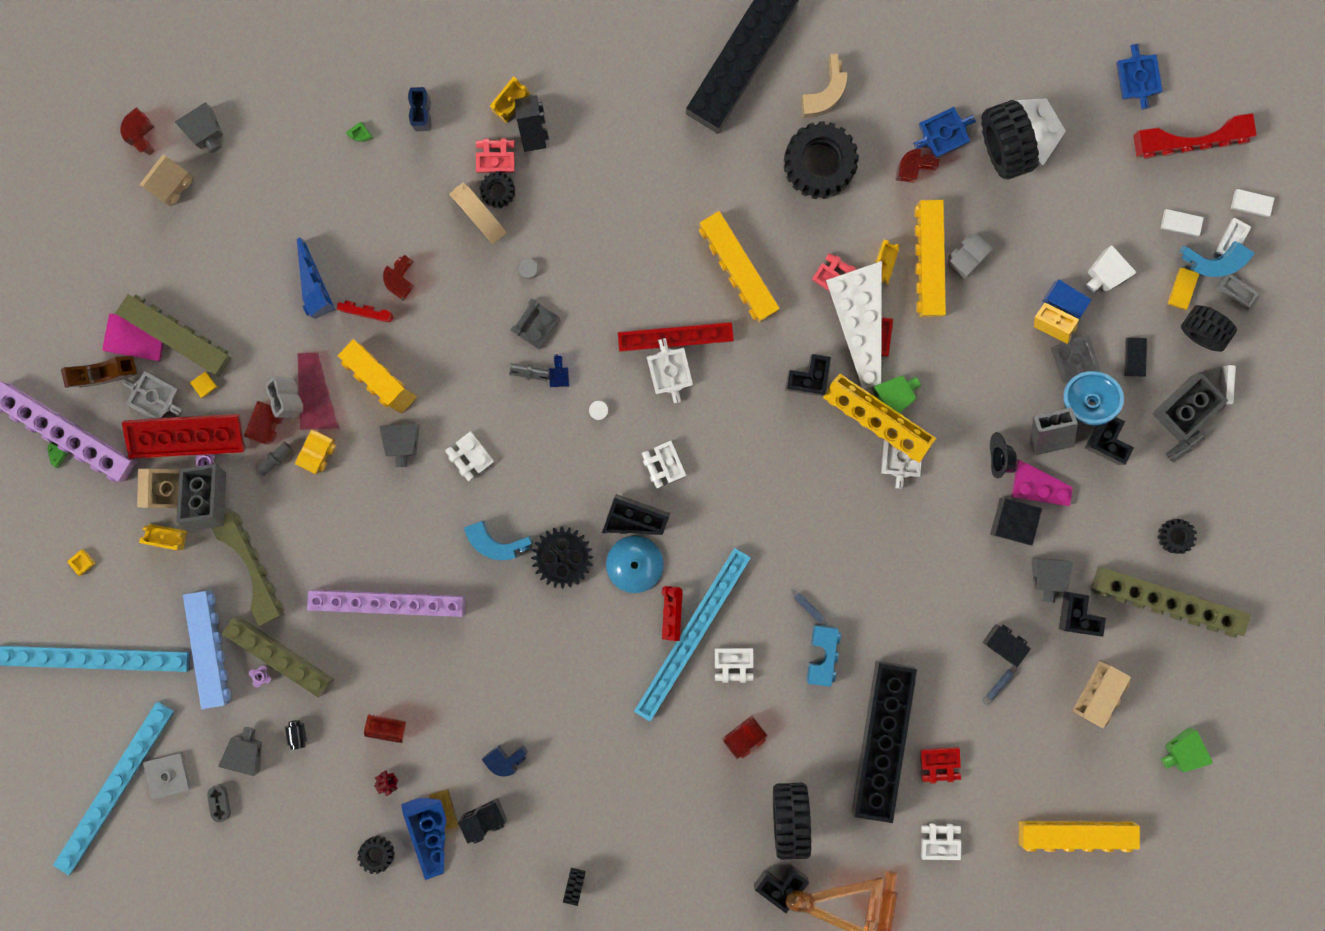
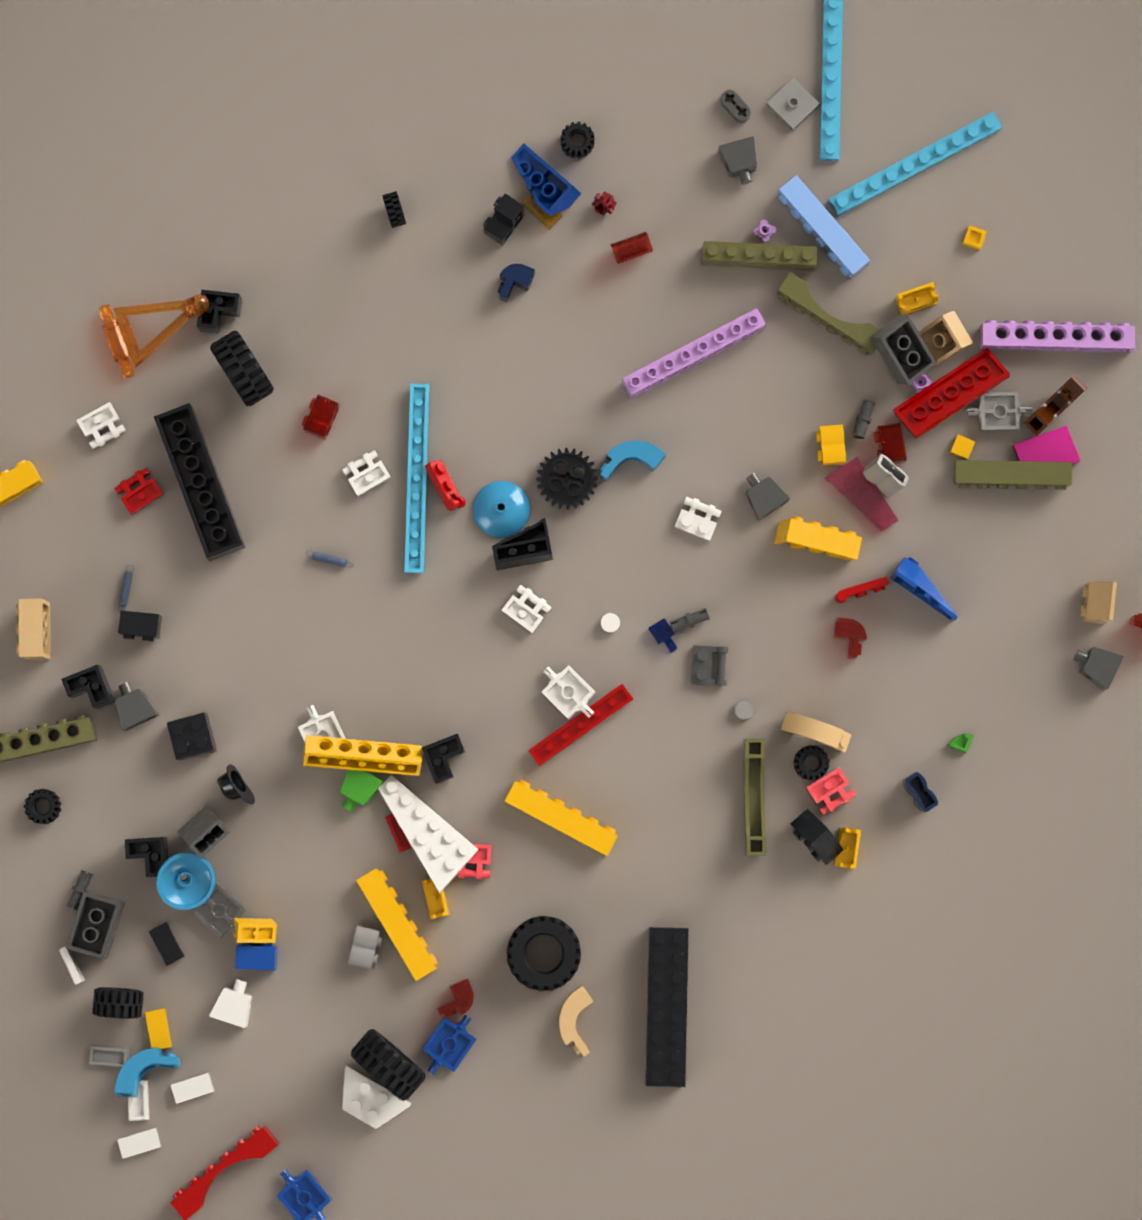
camera: 145 degrees right, 5 degrees down
(56, 455) = (1051, 314): bright green tile -> none
(295, 735) = (704, 199): black brick -> none
(571, 175) = (754, 797): none -> olive arch
(822, 672) = (286, 509): dark azure arch -> none
(1038, 486) = (187, 780): dark pink wing -> none

